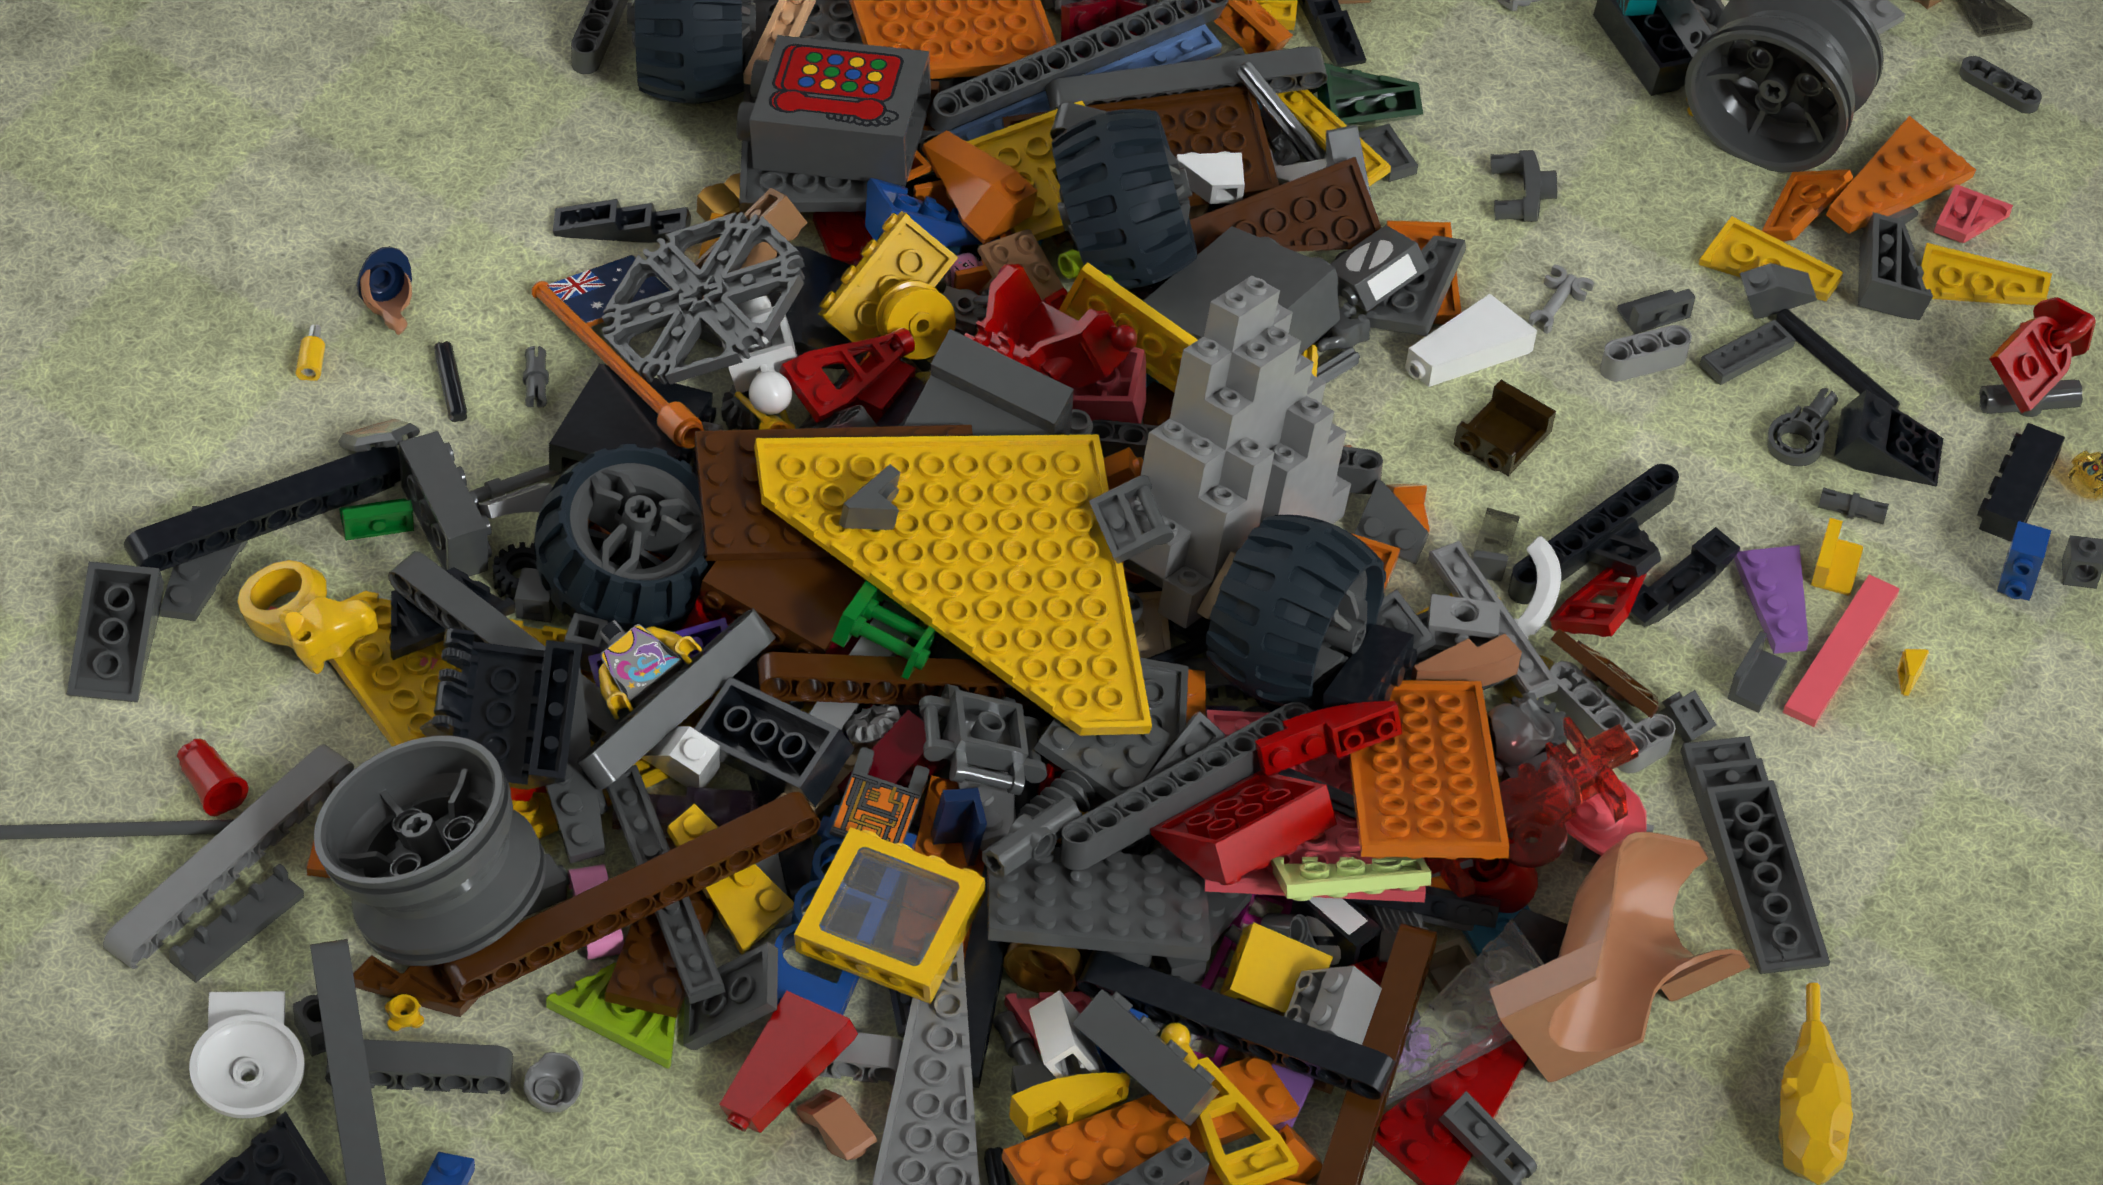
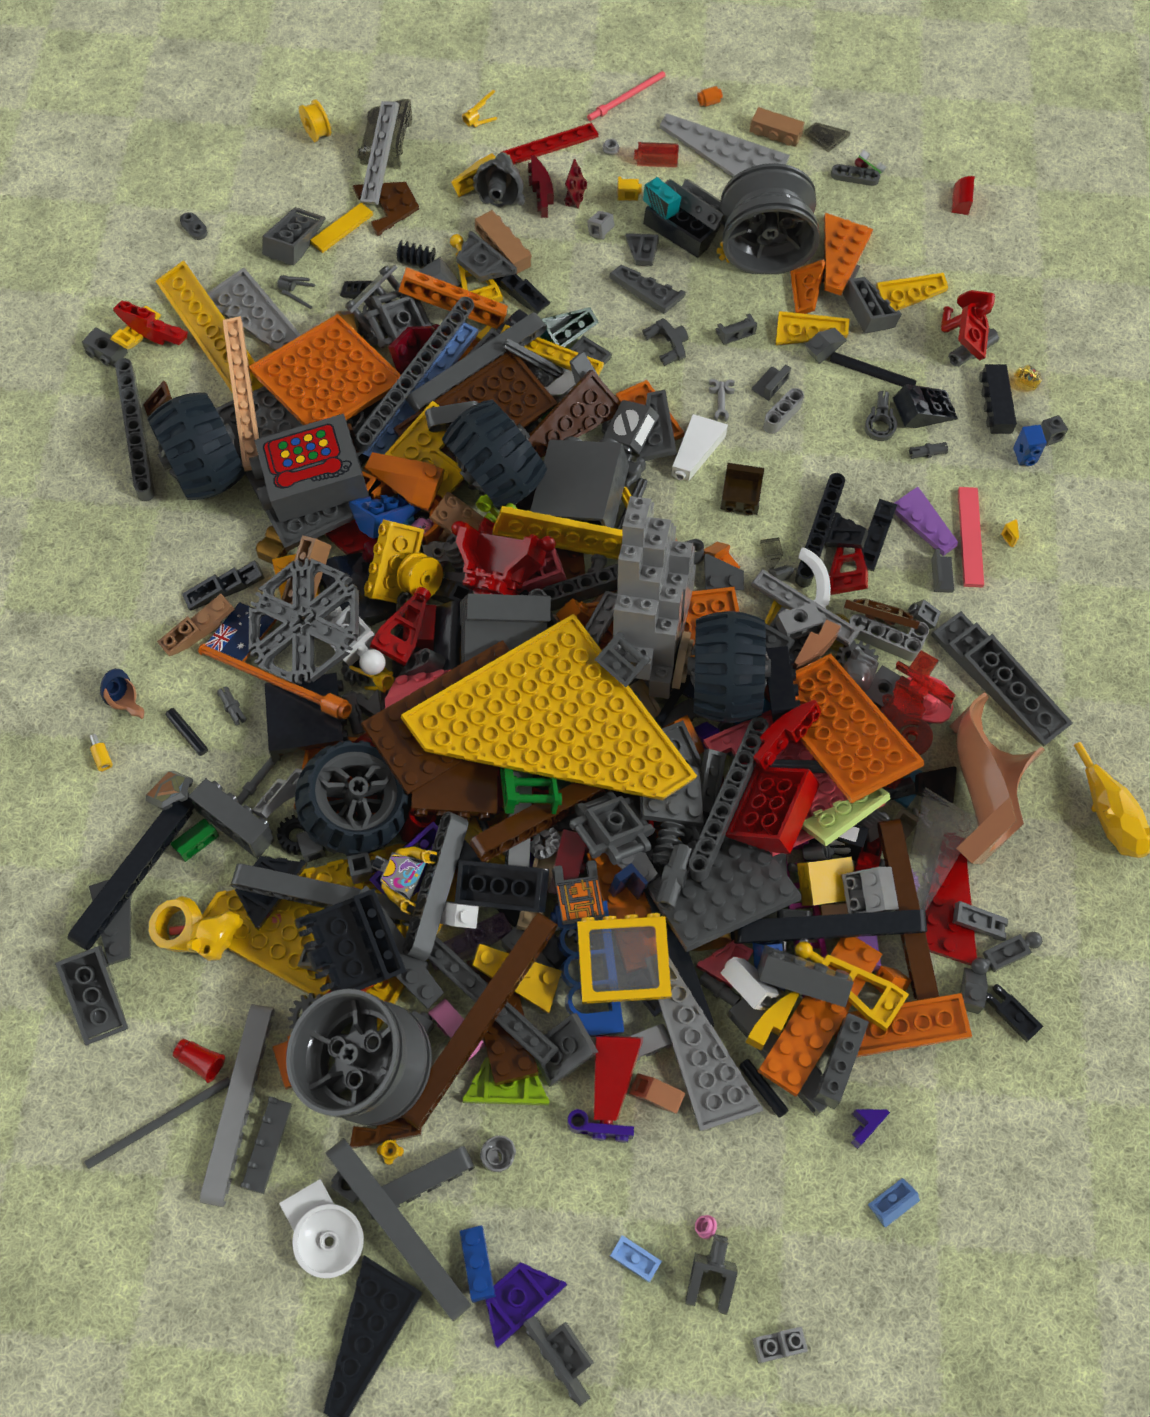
camera: 25 degrees left, 15 degrees up
(542, 259) = (199, 626): none -> medium nougat slope
(720, 1128) = (600, 1131): none -> dark purple plate
(872, 503) = (488, 726): dark grey slope -> none
(1215, 176) = (525, 411): white slope -> none
(1537, 105) = (647, 289): none -> dark grey wing
(1569, 46) = (643, 247): none -> dark grey wing
(1646, 218) = (737, 330): none -> dark grey hinge
(1747, 352) = (829, 386): dark grey plate -> none
(1836, 561) = (938, 486): yellow panel -> none
(1970, 214) = (884, 256): coral wing -> none
(2022, 71) = (861, 162): none -> piece

